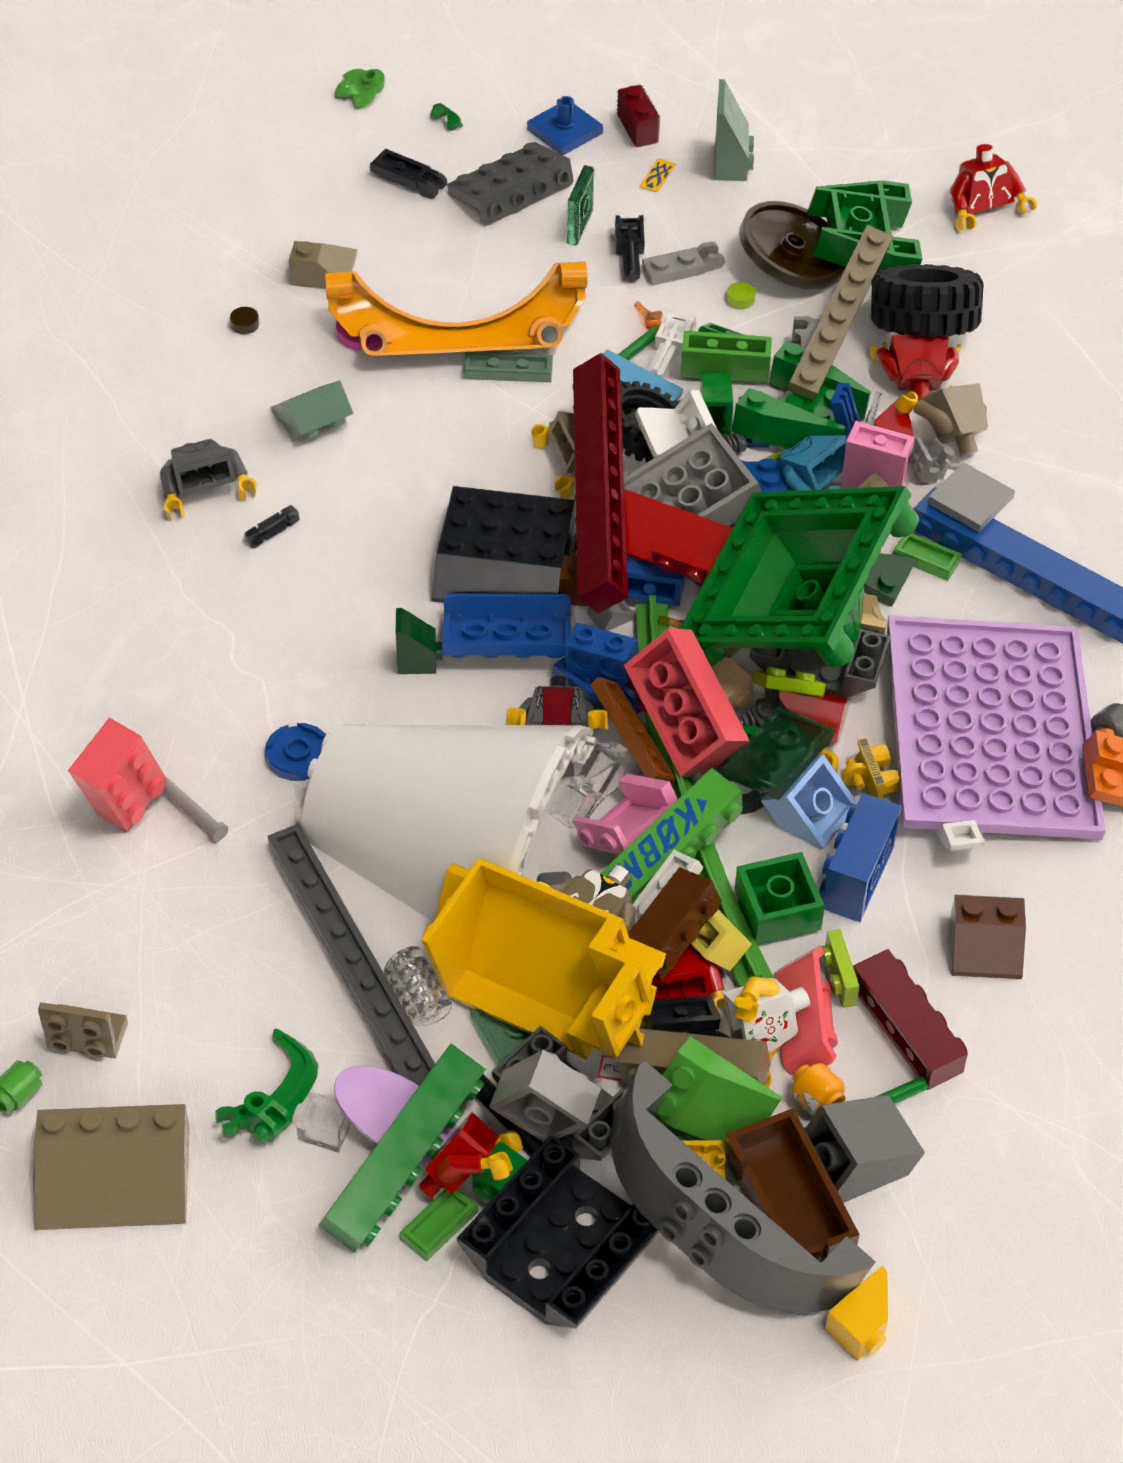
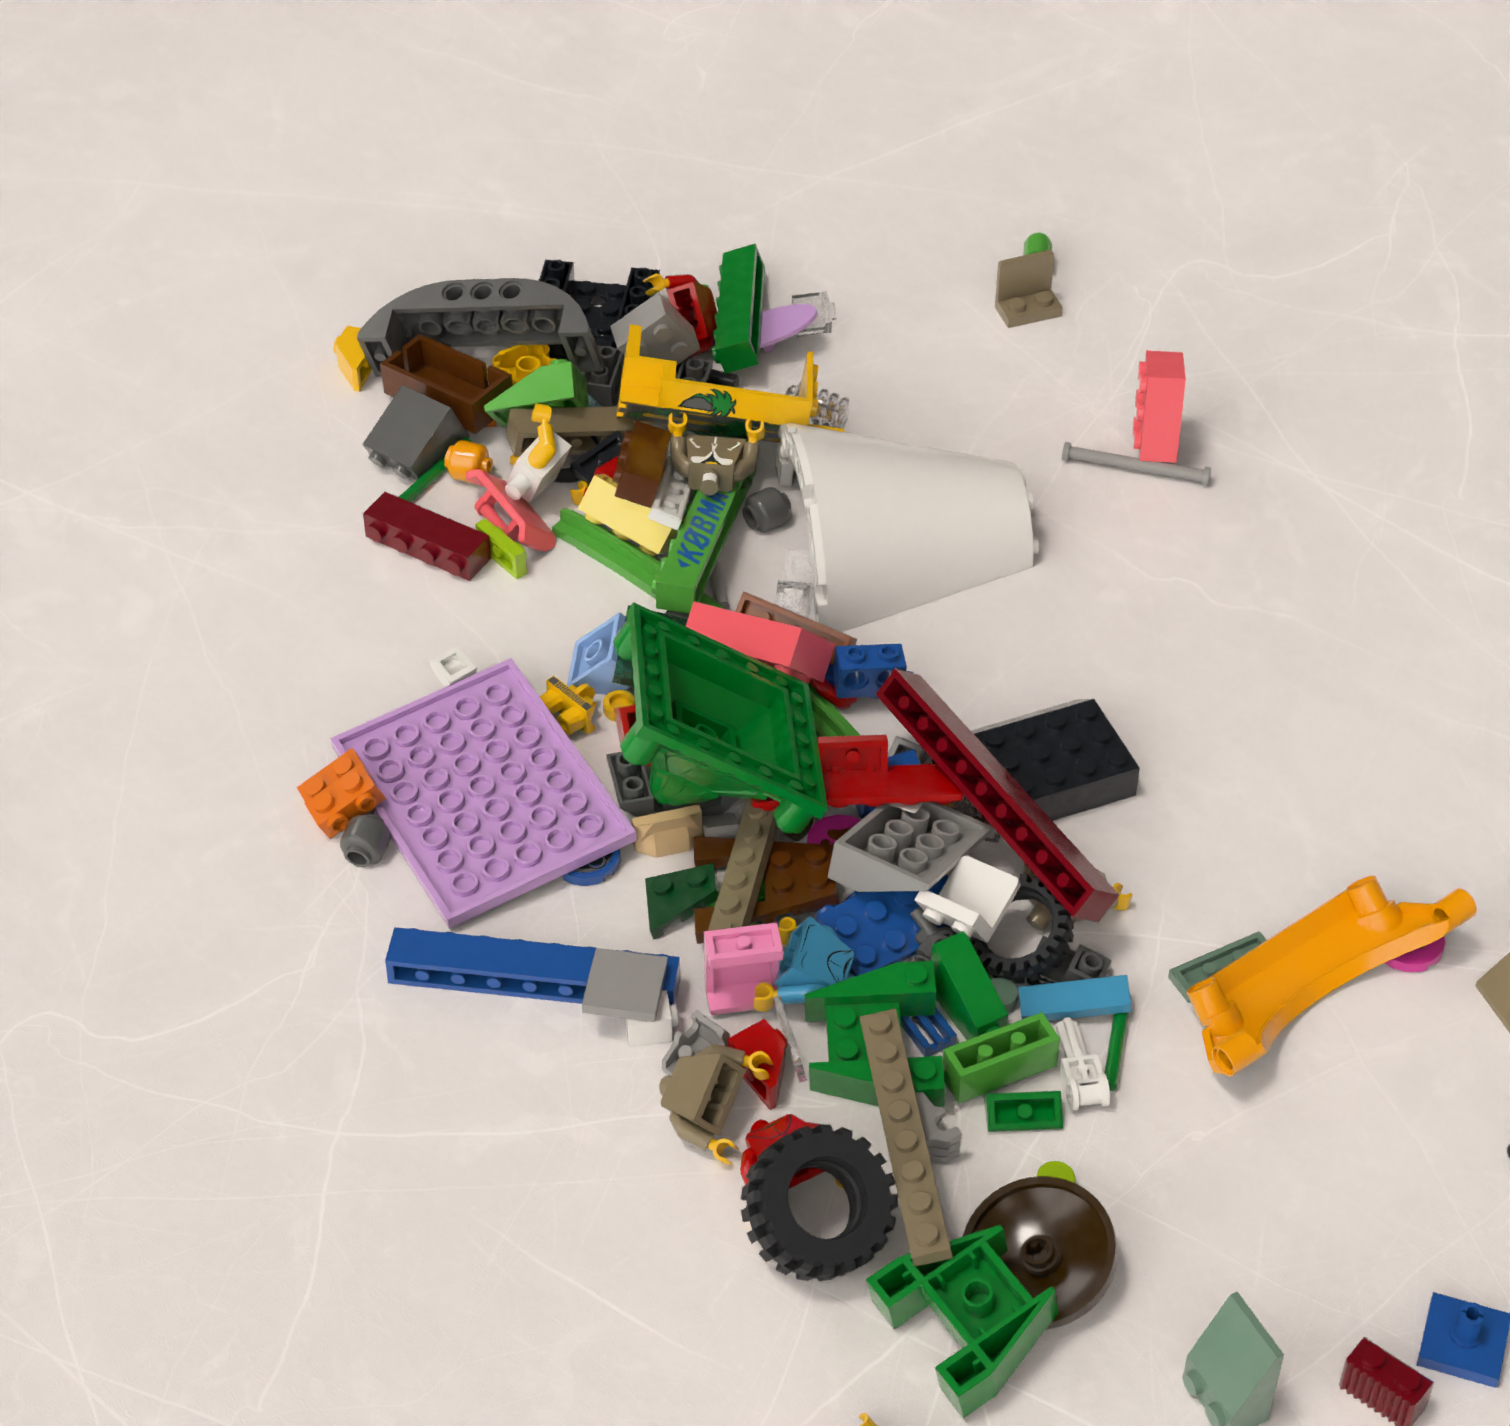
camera: 150 degrees right, 5 degrees down
(111, 1166) = (933, 246): dark tan slope -> none
(202, 467) = (1386, 702): dark grey torso -> none
(270, 1115) = (853, 305): green piece -> none
(272, 526) = (1277, 696): black axle -> none
(293, 749) = (1065, 533): blue tile -> none
(314, 410) = (1359, 813): sand green slope -> none
(351, 954) = (885, 411): dark grey plate -> none
(416, 644) = (1043, 627): dark green slope -> none
(506, 625) = (987, 676): blue bracket -> none
(513, 181) = (1443, 1207): dark grey bracket -> none
(557, 706) = (877, 623): torso -> none
(580, 205) = (1320, 1177): clear green tile -> none
(630, 243) = (1234, 1187): black connector -> none
(643, 804) = (747, 563): bright pink panel -> none
(651, 318) = (1126, 1093): clear orange hand -> none
(657, 175) = (1294, 1327): yellow sticker -> none
(683, 263) = (1155, 1191): light grey hinge -> none
(779, 898) = (581, 565): green brick -> none
(844, 407) = (819, 1030): blue tile -> none
(859, 856) = (531, 614): blue brick -> none
(930, 556) = (646, 942): bright green tile -> none
(987, 936) = (396, 624): reddish brown slope -> none

